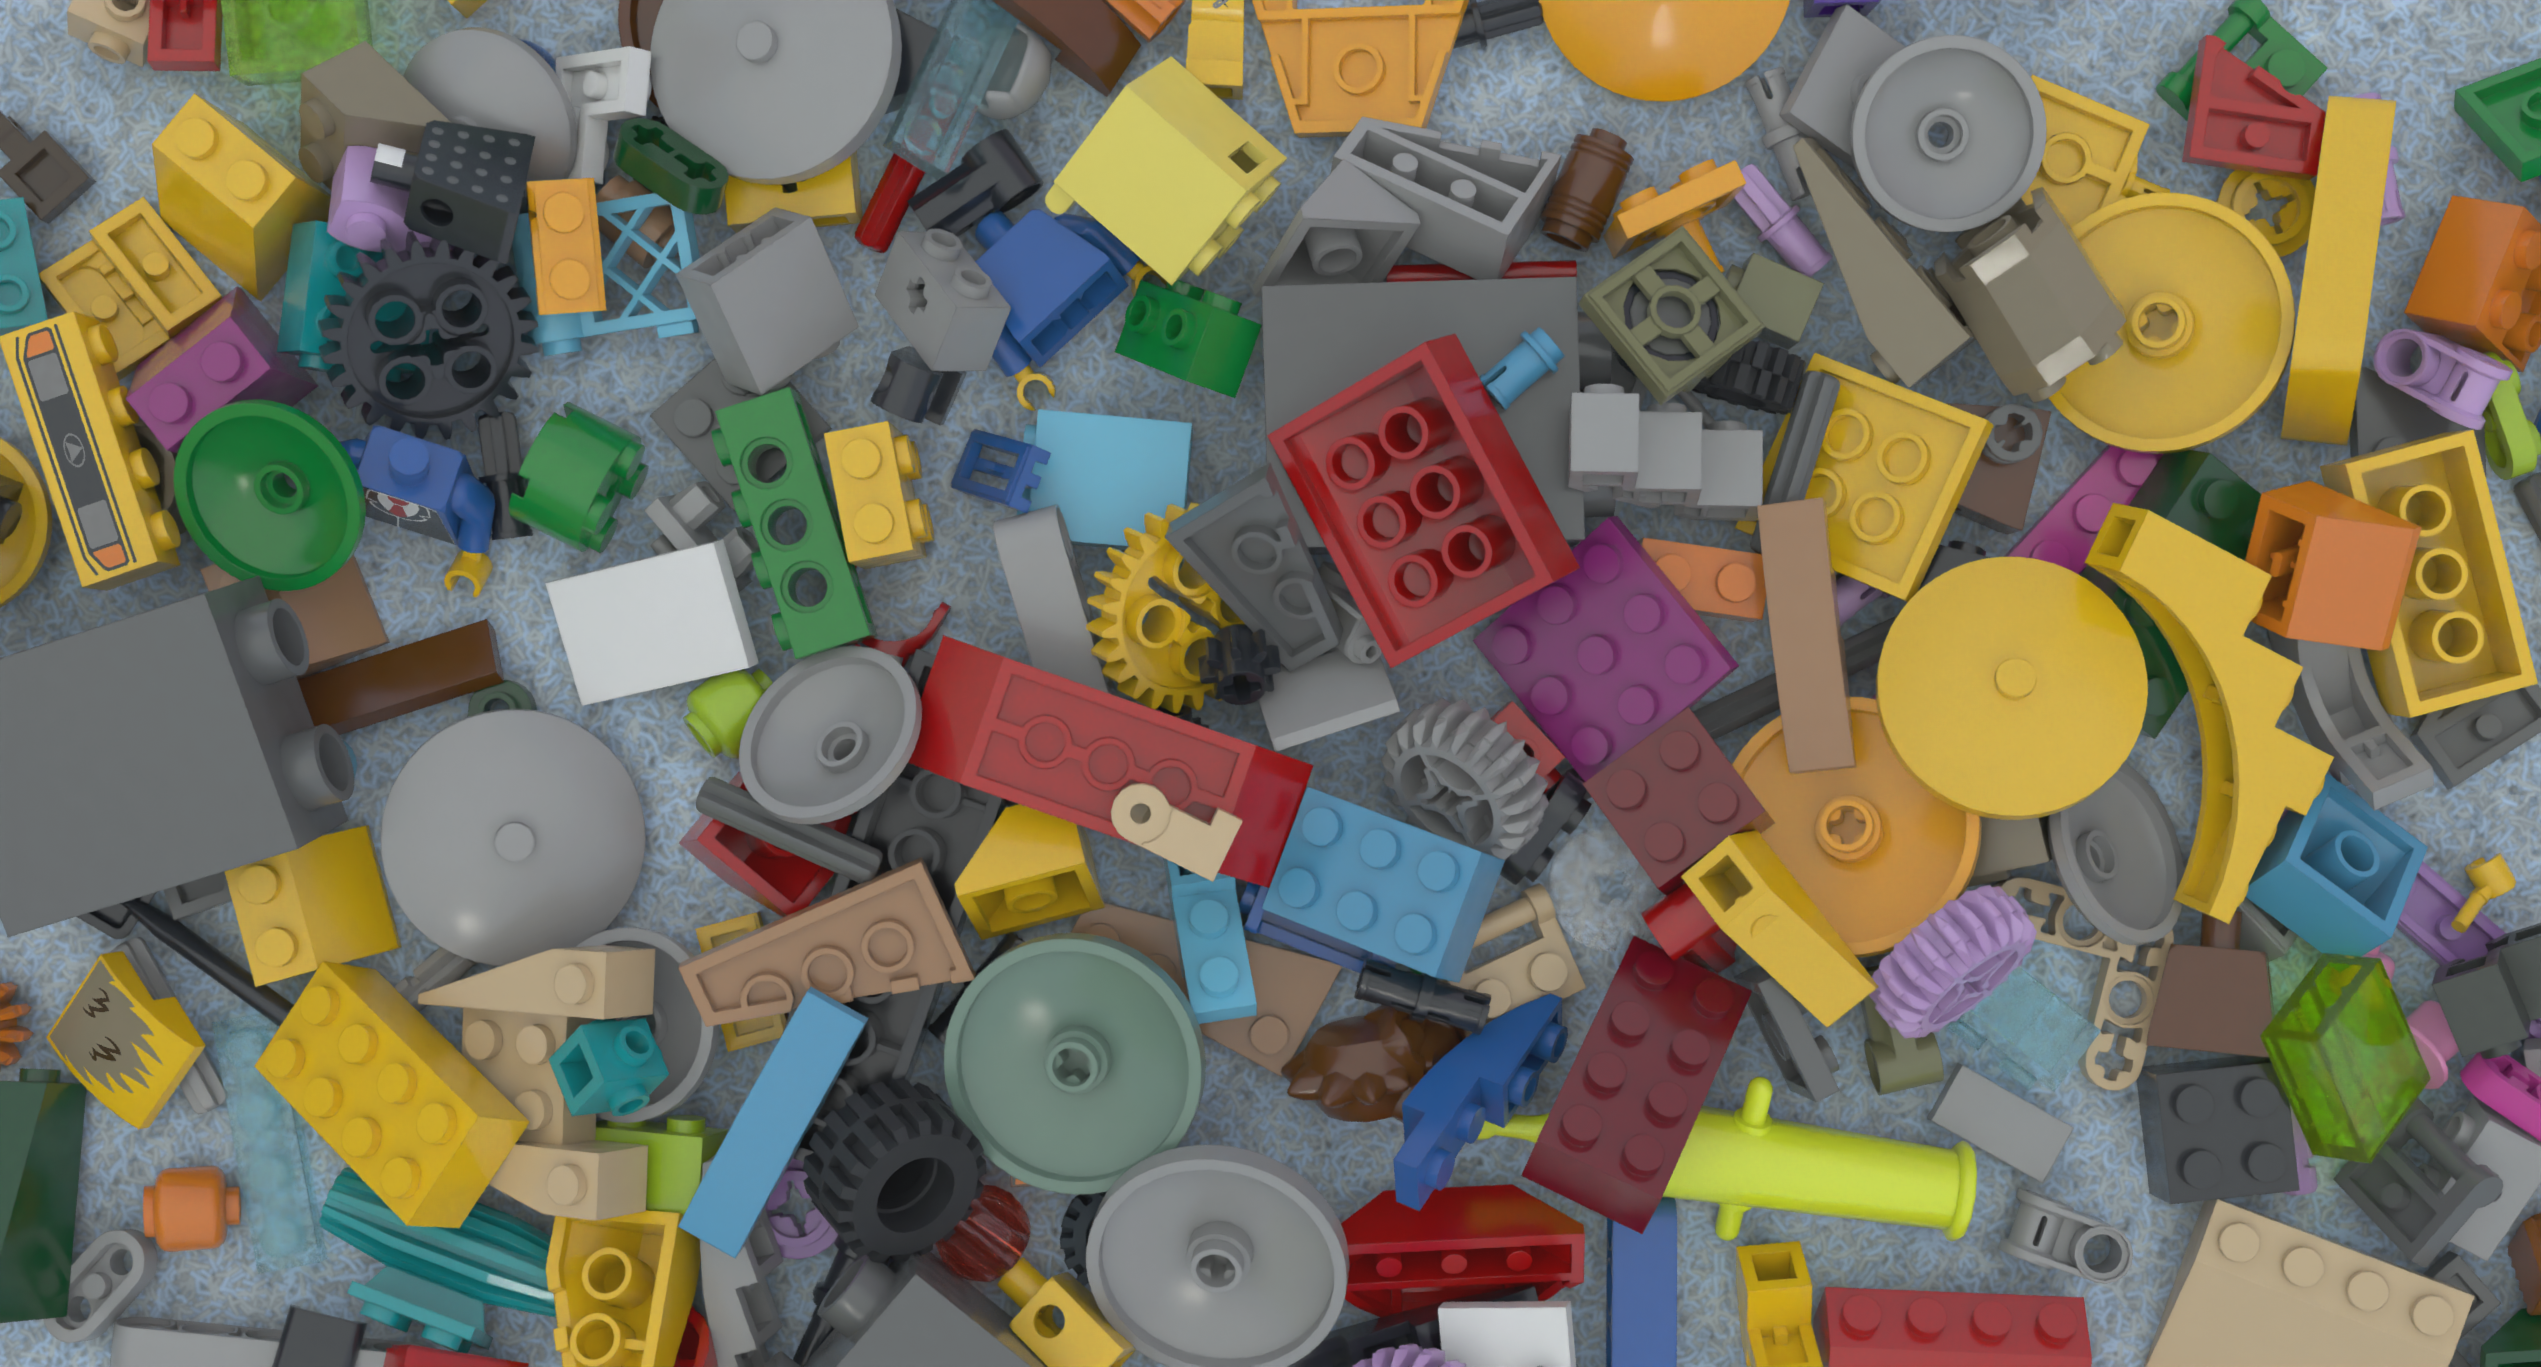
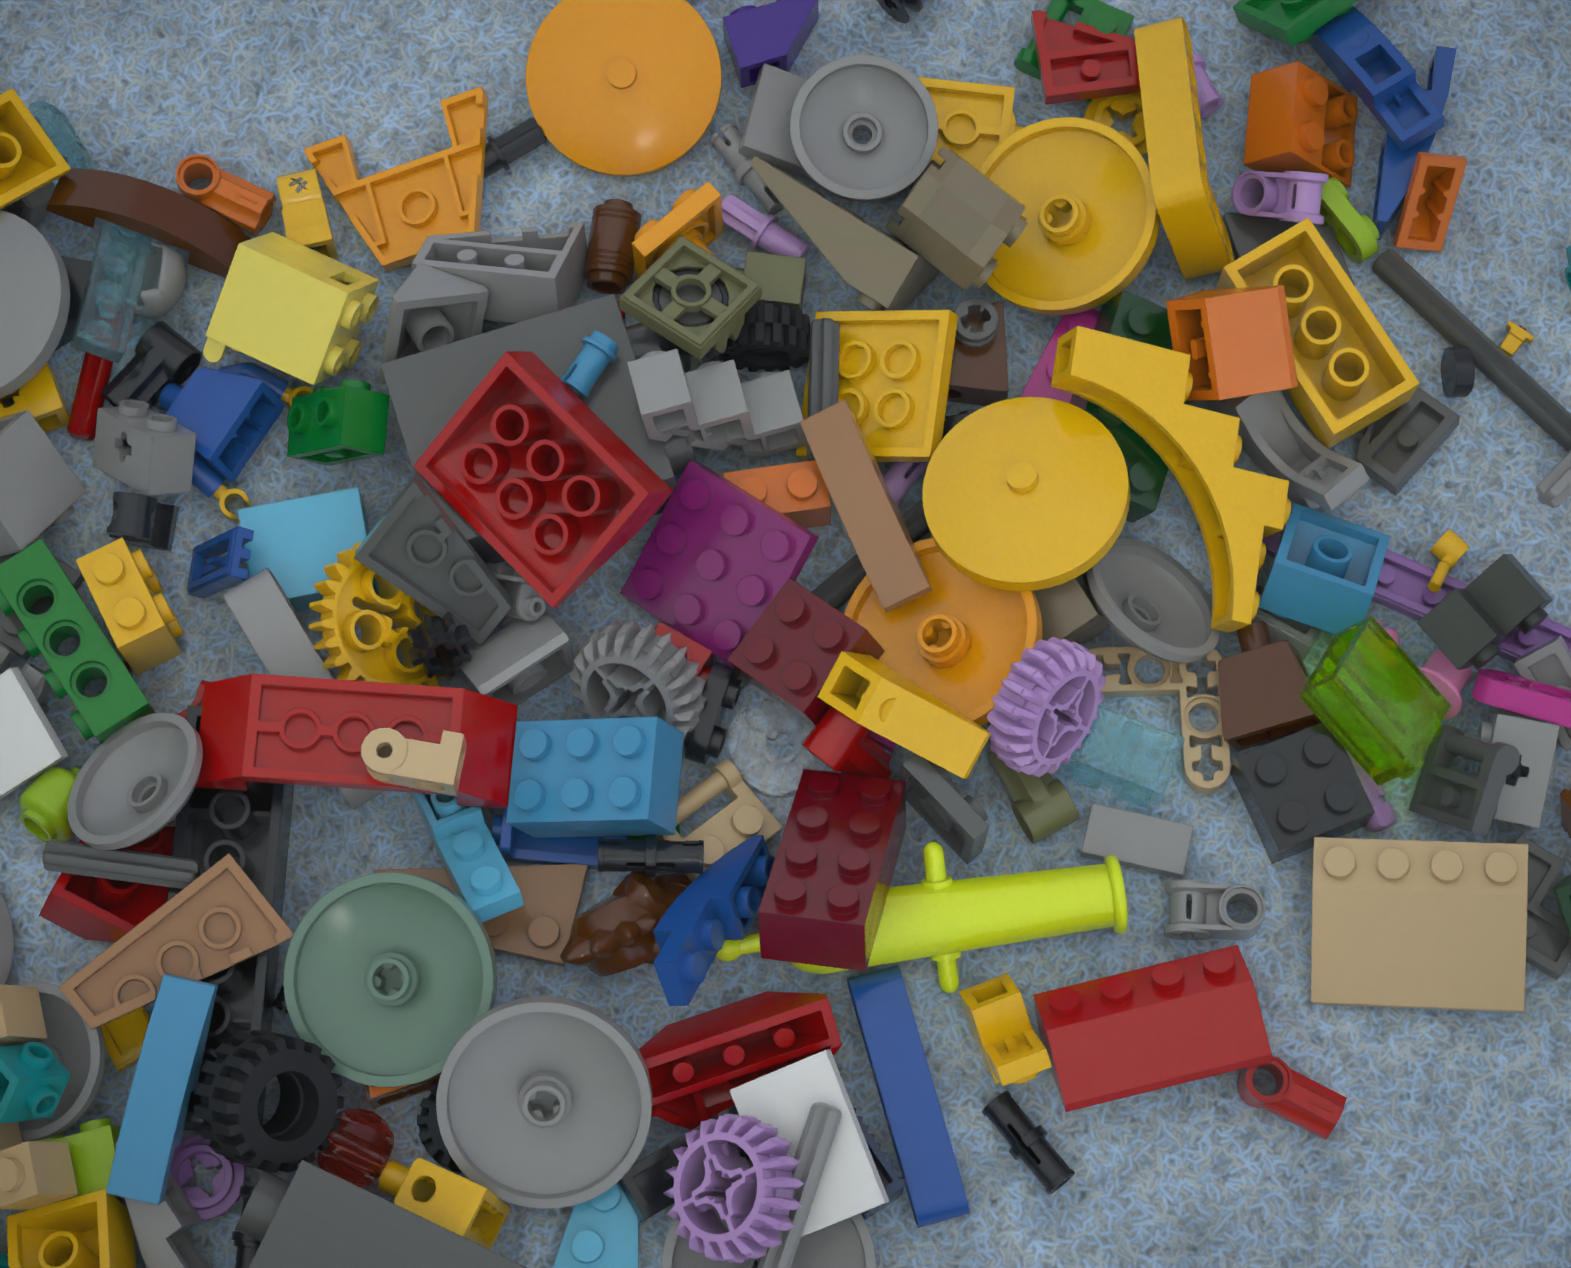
camera: 10 degrees left, 15 degrees down
(1028, 874) = (316, 848): yellow slope -> none

